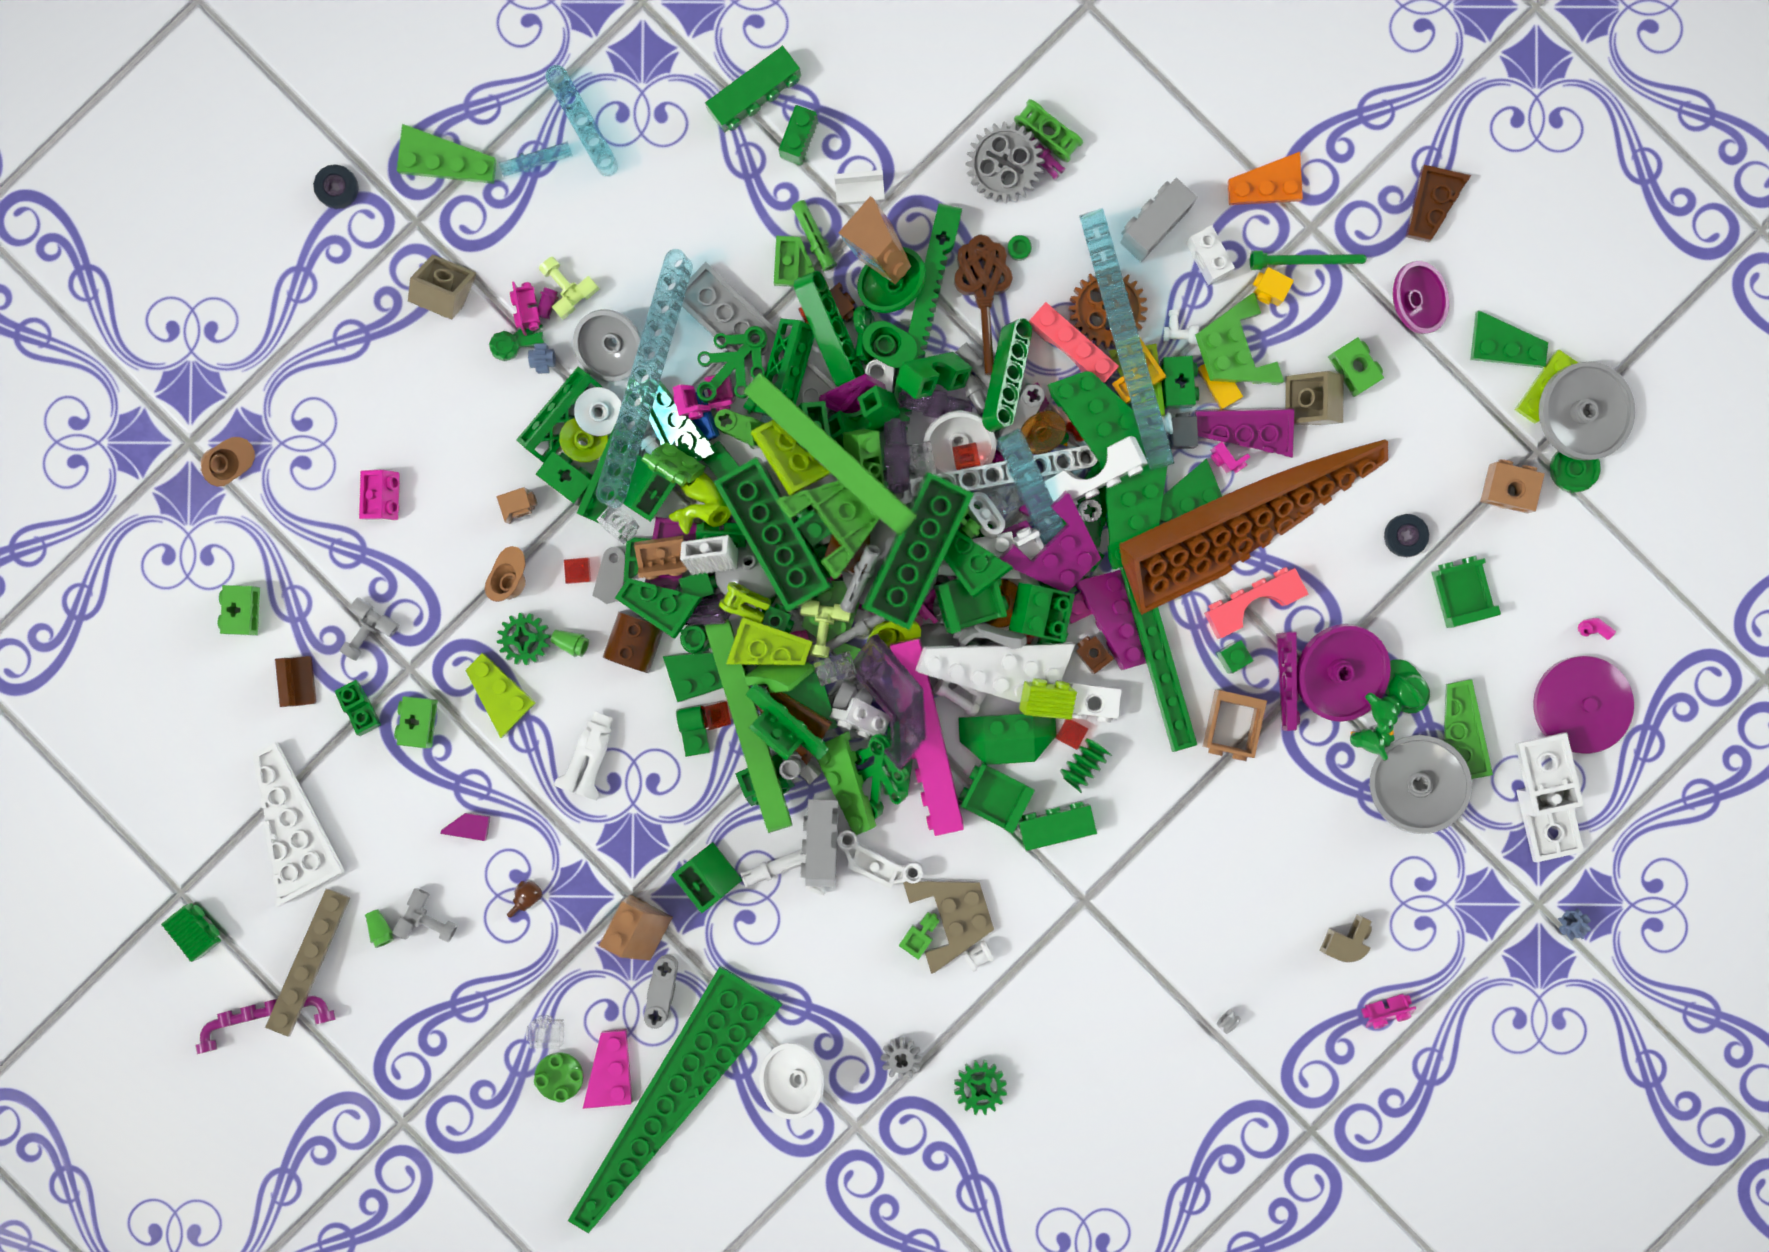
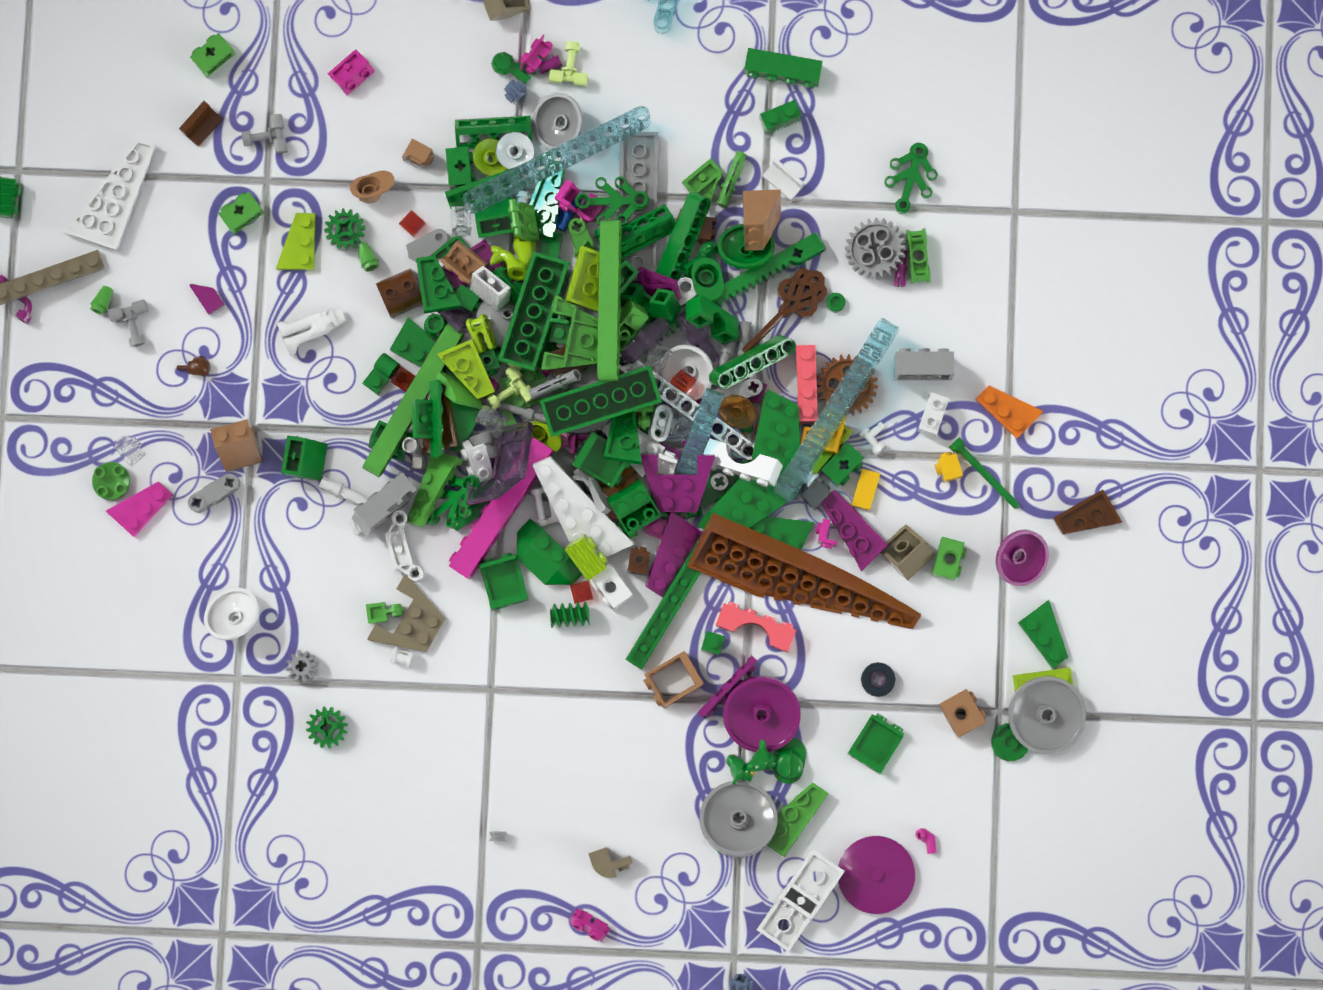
camera: 40 degrees right, 5 degrees down
(357, 707) = (218, 172): green slope -> none
(708, 1044) = (208, 548): green wing -> none
(966, 65) = (911, 174): none -> green plant
(1057, 826) = (519, 631): green brick -> none
(1227, 350) = (887, 474): bright green wing -> none

